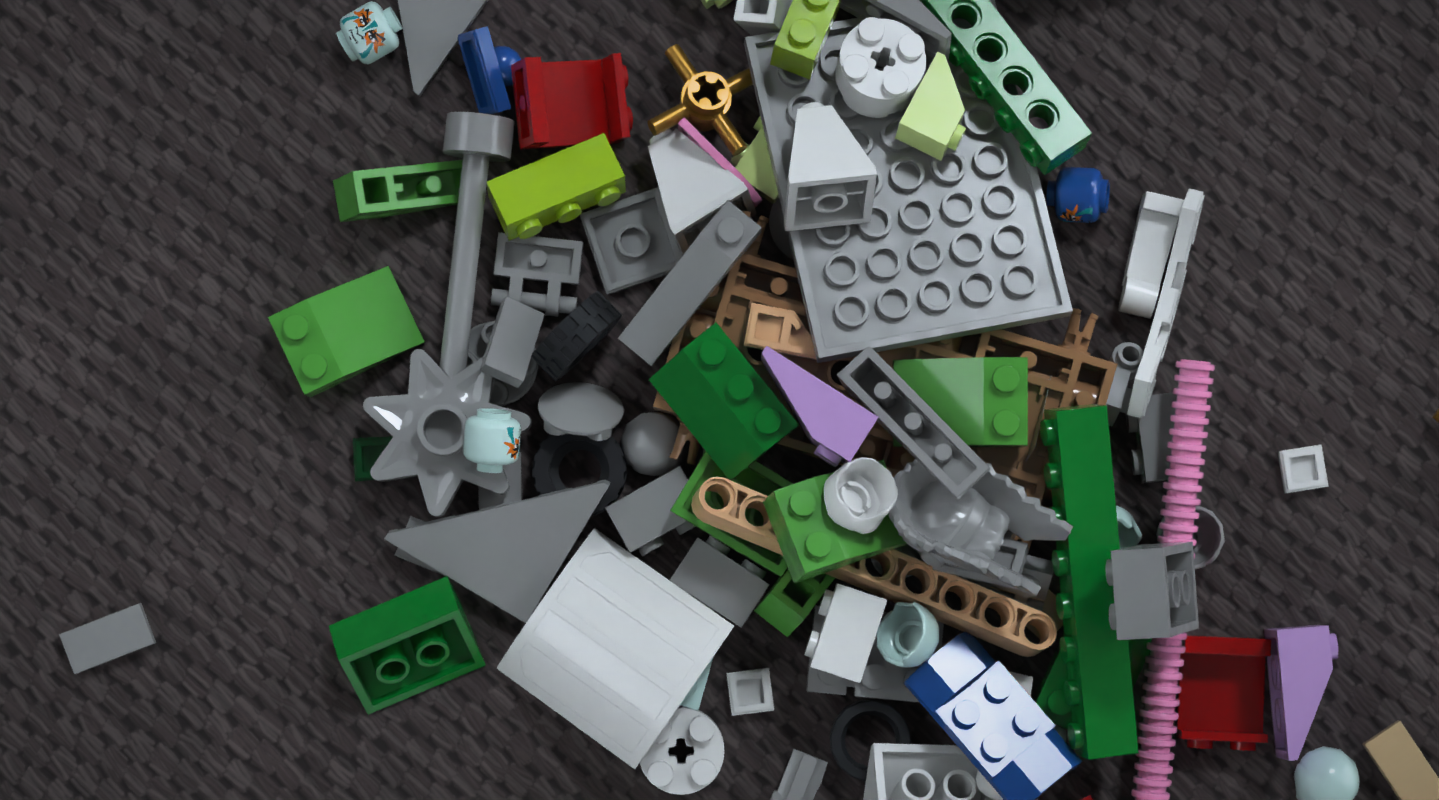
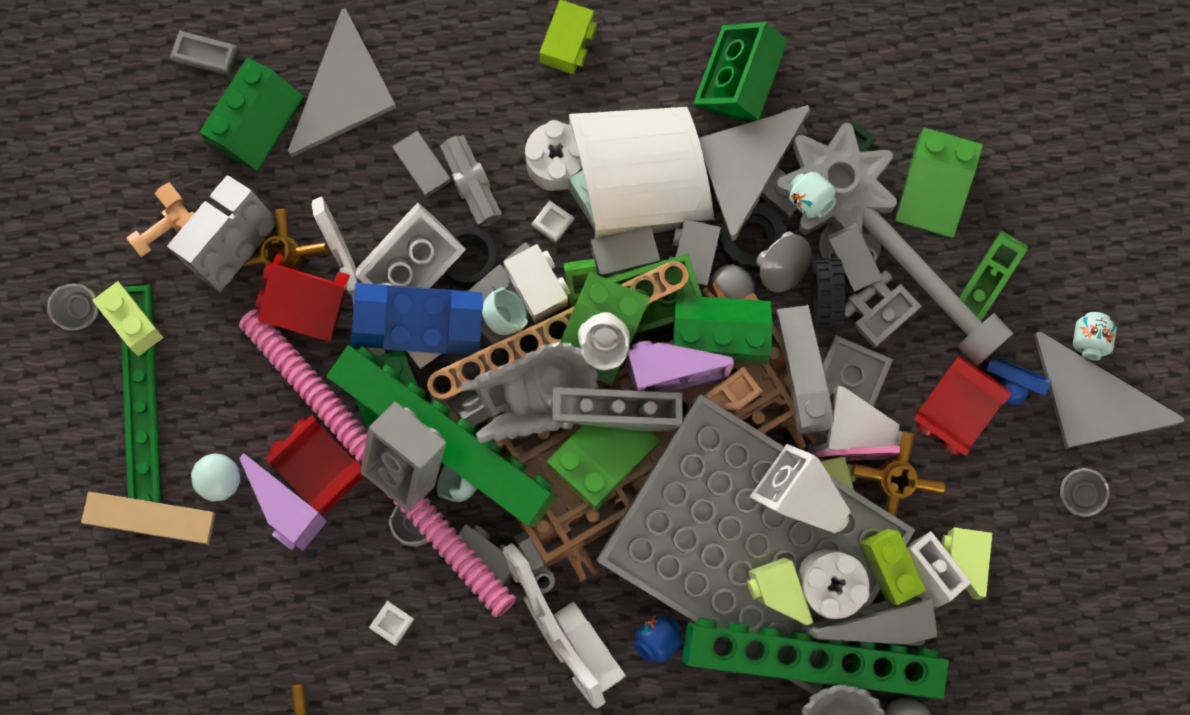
camera: 130 degrees right, 10 degrees down
(556, 187) = (919, 356): lime brick -> none

